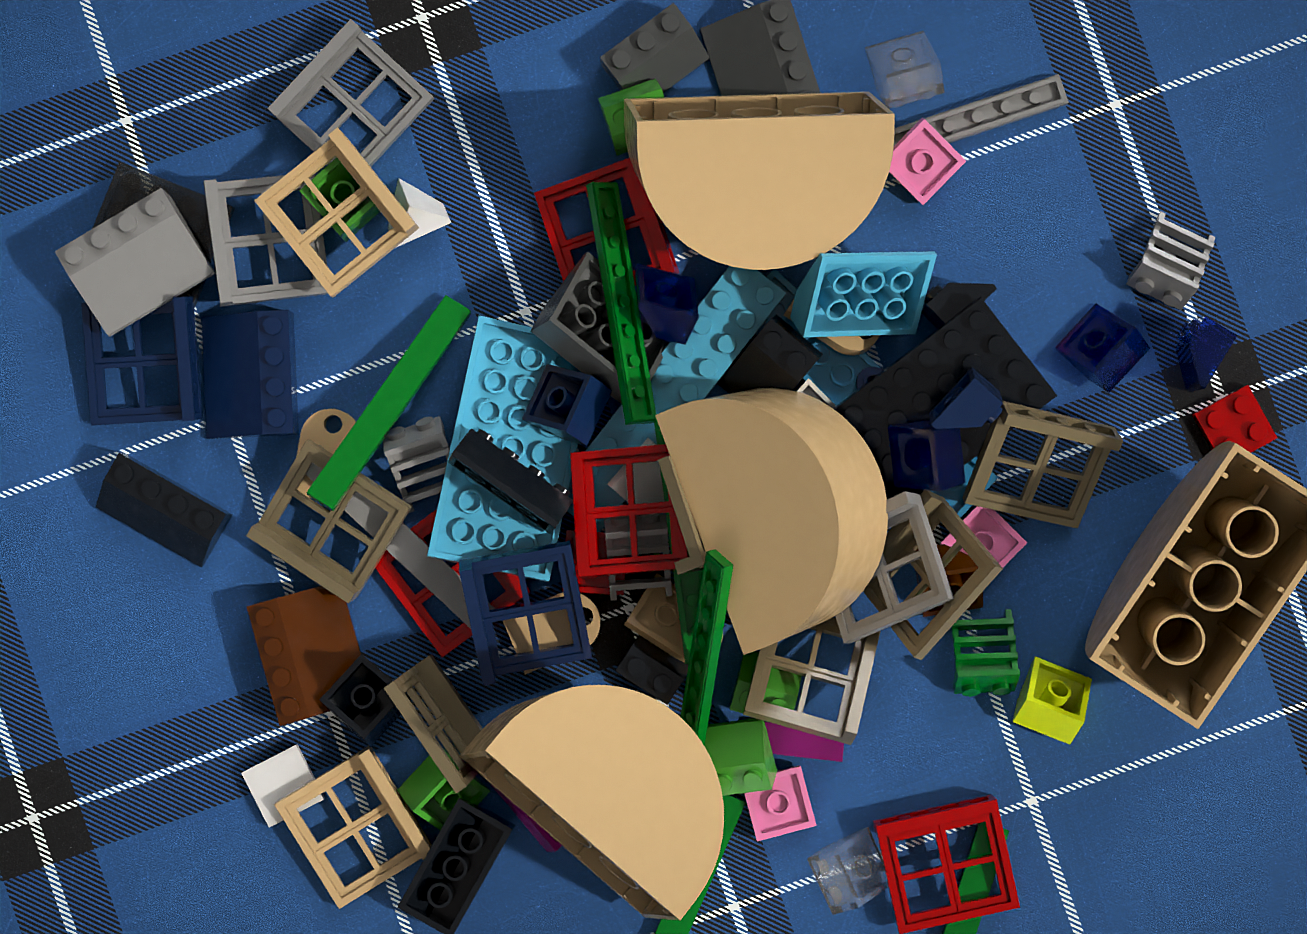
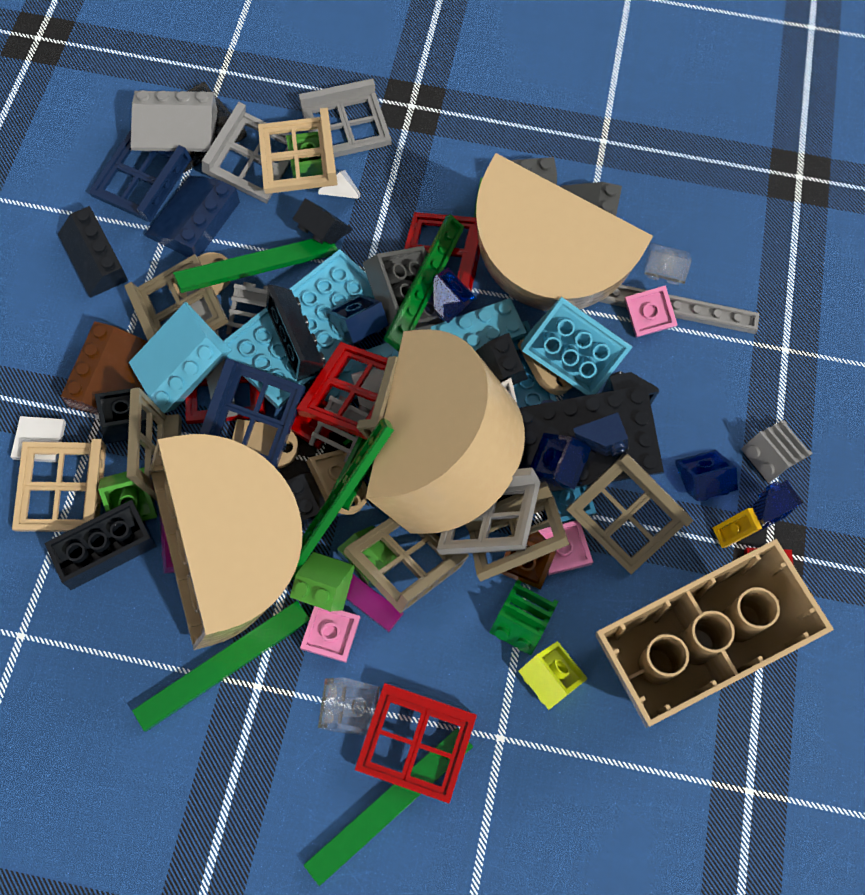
camera: 30 degrees right, 20 degrees down
(390, 597) = (178, 358): none -> medium azure slope
(429, 289) = (320, 223): none -> black slope
(1173, 401) = (737, 527): none -> yellow plate

